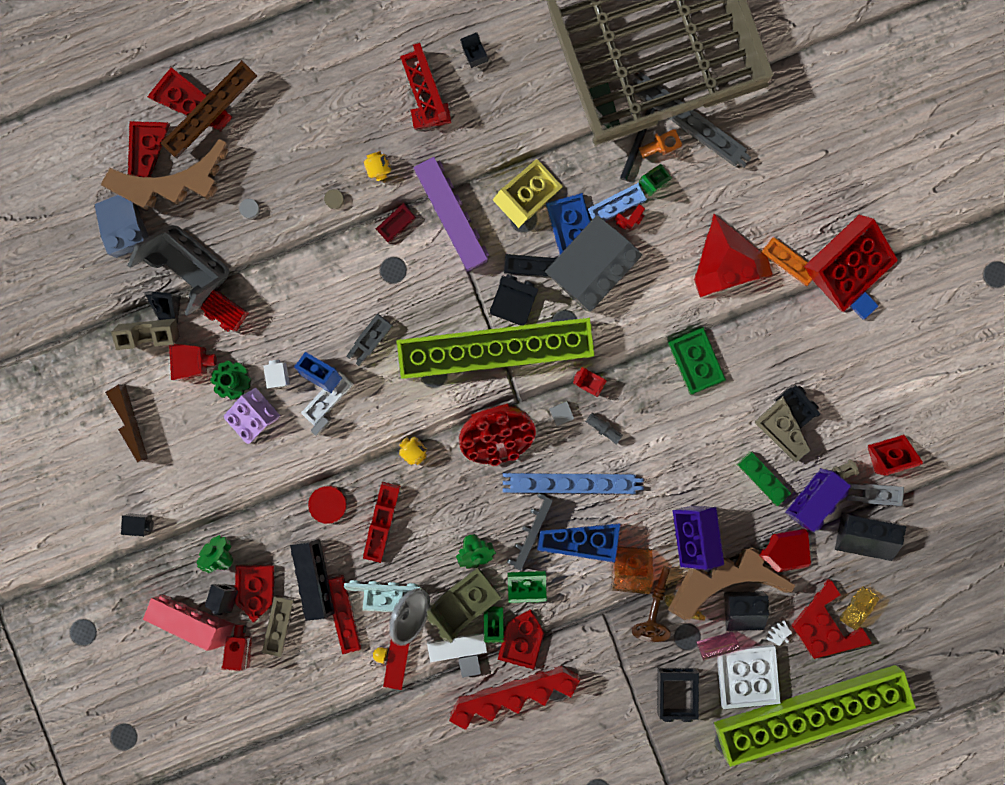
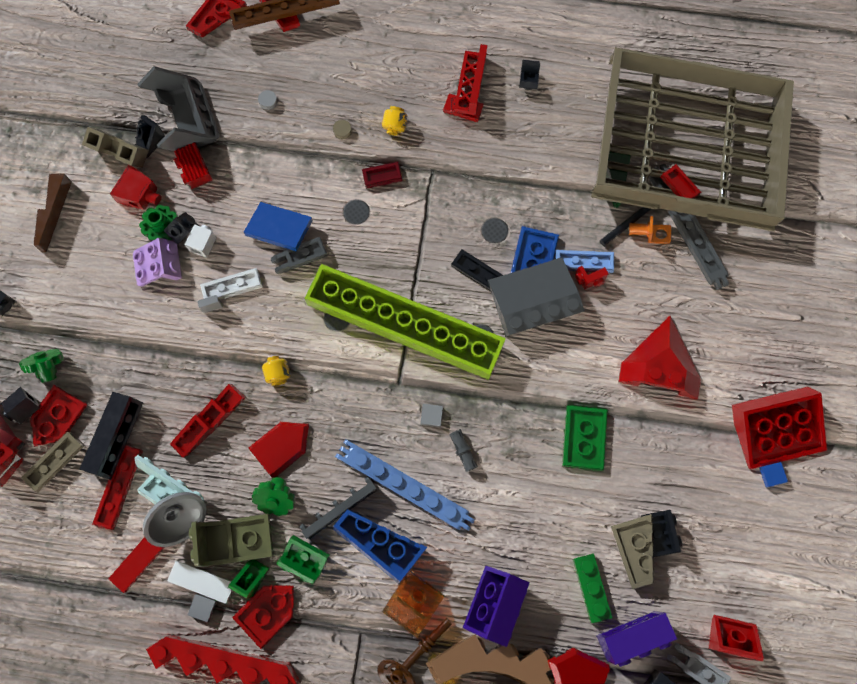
camera: 25 degrees right, 15 degrees down
(120, 225) = (155, 51): sand blue slope -> none
(173, 187) = (215, 48): medium nougat arch -> none
(253, 373) = (180, 227): none -> black bracket
(318, 372) = (236, 255): blue brick -> none
(327, 504) = (170, 377): red tile -> none
(335, 324) = (278, 226): none -> blue tile
(380, 654) = (126, 546): yellow hinge -> none
(451, 215) = (432, 191): medium lavender brick -> none
(453, 508) = (281, 447): none -> red tile
(497, 435) = (359, 396): red bracket -> none
(513, 300) = (447, 289): black bracket -> none
(527, 193) = (509, 208): light yellow slope -> none
(589, 381) = (473, 399): red bracket -> none
(654, 179) = (629, 257): green slope -> none
(666, 88) = (680, 183): none -> red tile
(787, 260) = (718, 393): orange tile -> none
(852, 469) = (682, 626): dark tan bush -> none

